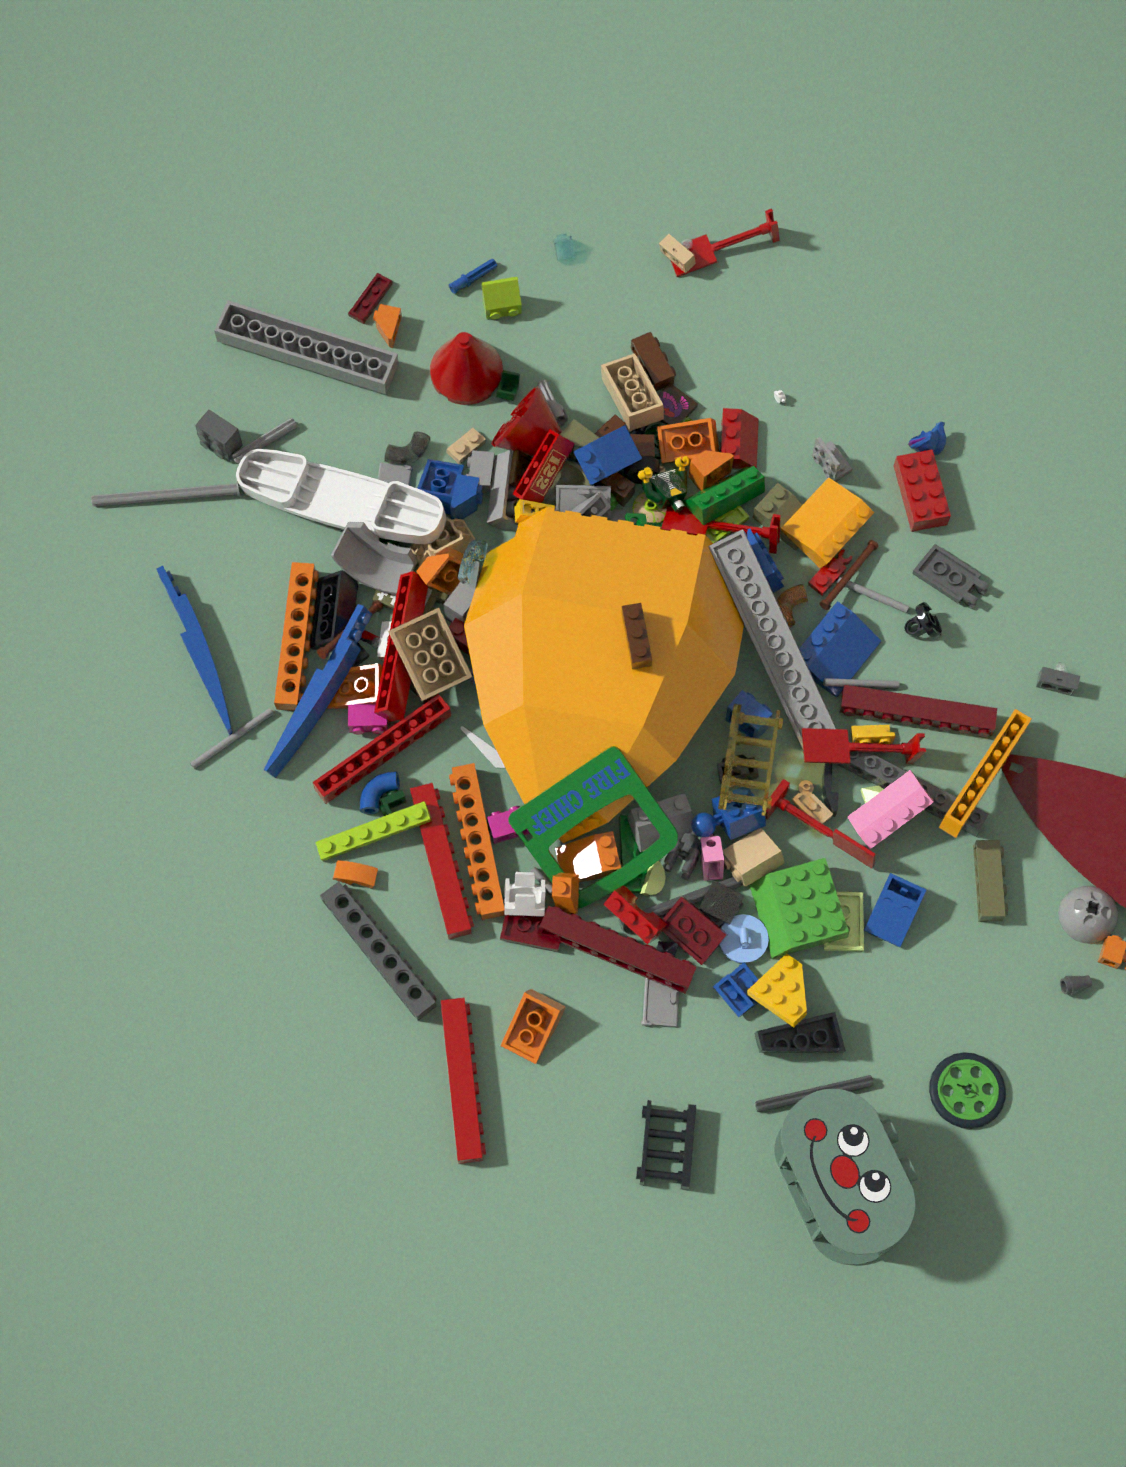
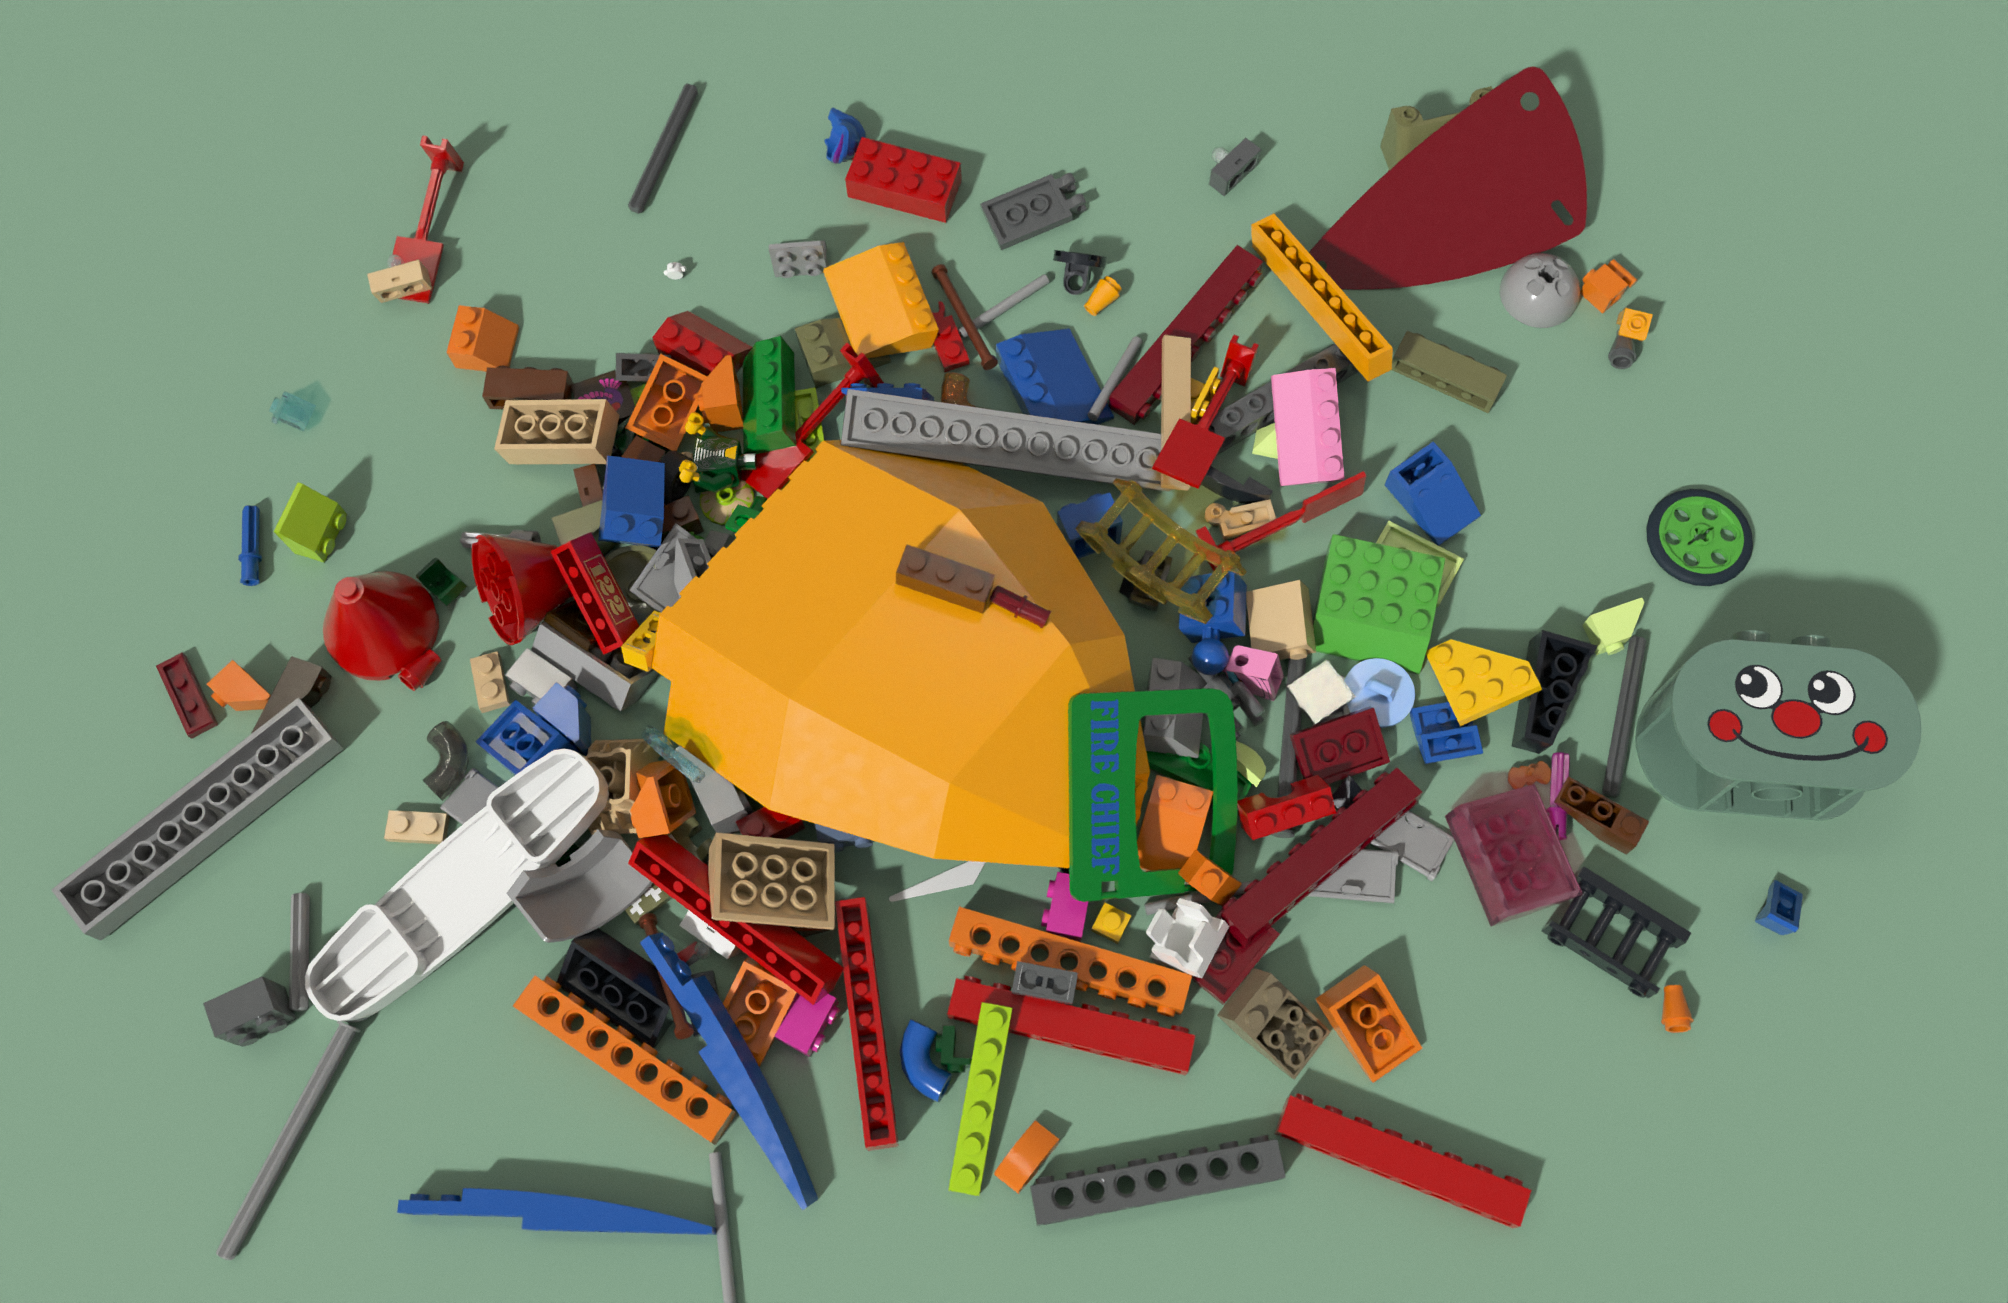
camera: 60 degrees left, 0 degrees up
(363, 457) = (416, 827): none -> tan plate
(408, 349) = (300, 681): none -> dark brown slope
(451, 405) = (418, 671): none -> red cone
(453, 829) = (1044, 982): none -> dark grey piece
(504, 972) = (1274, 1022): none -> dark tan slope
(514, 854) = (1111, 923): none -> yellow plate
(625, 984) = (1368, 873): none -> light grey door
(637, 1202) = (1675, 1010): none -> orange cone
(646, 686) = (1020, 606): none -> dark red axle
(668, 318) = (481, 339): none -> orange slope
(682, 1062) = (1512, 854): none -> clear pink slope
(703, 409) = (635, 366): none -> dark grey slope
(736, 1075) = (1559, 773): none -> magenta axle
(736, 1102) = (1601, 816): none -> reddish brown slope
(739, 1238) = (1781, 910): none -> blue slope
(745, 1055) = (1529, 775): none -> dark orange piece
(857, 343) = (662, 148): none -> dark grey axle
(870, 1060) = (1613, 626): none -> yellowish green slope
(872, 718) = (1175, 393): none -> tan tile
(915, 648) = (1104, 293): none -> light orange cone
(1094, 981) = (1634, 324): none -> light orange bracket

